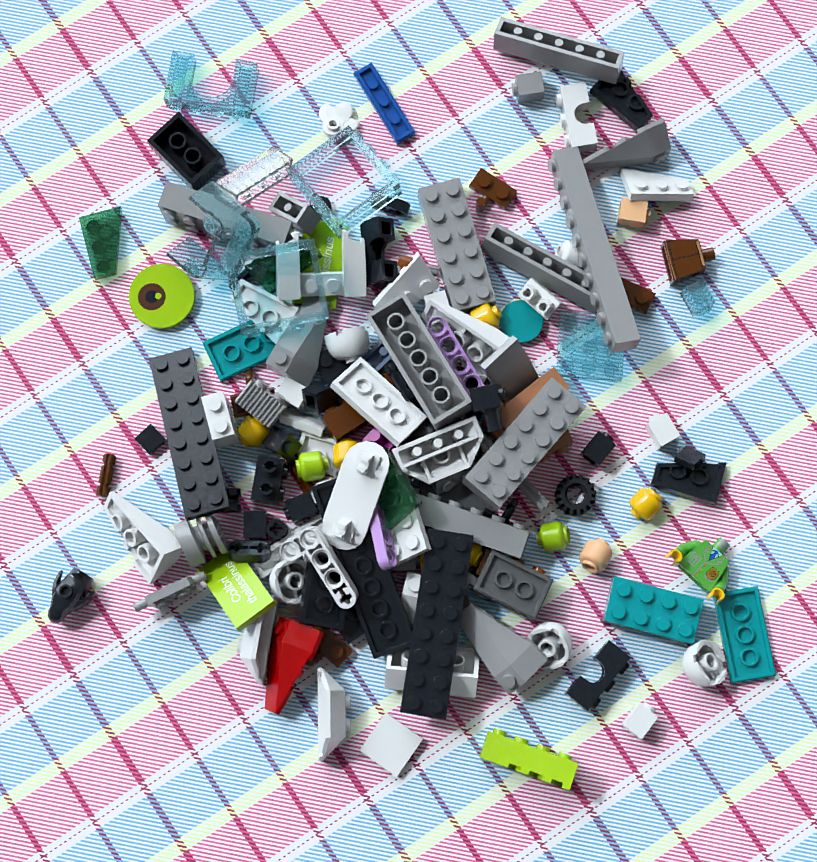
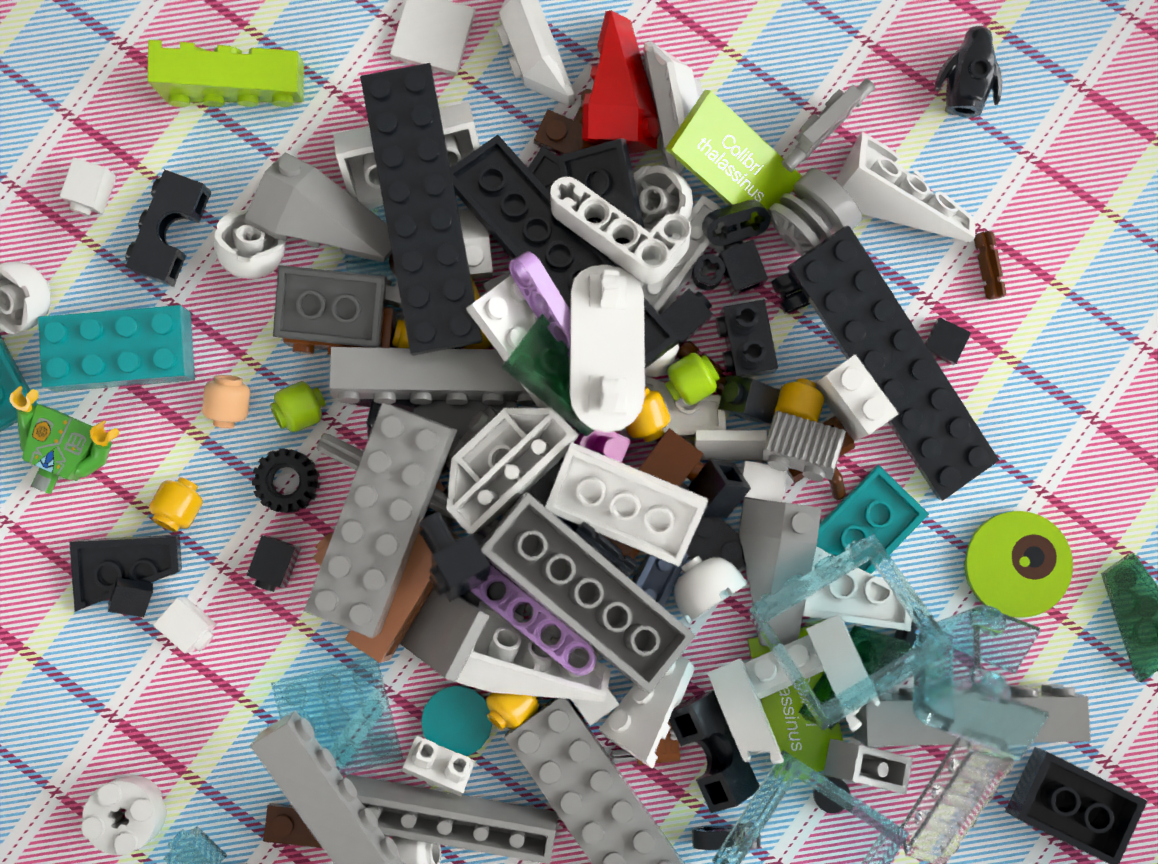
camera: 160 degrees right, 5 degrees up
(735, 323) = (105, 824): none -> white brick

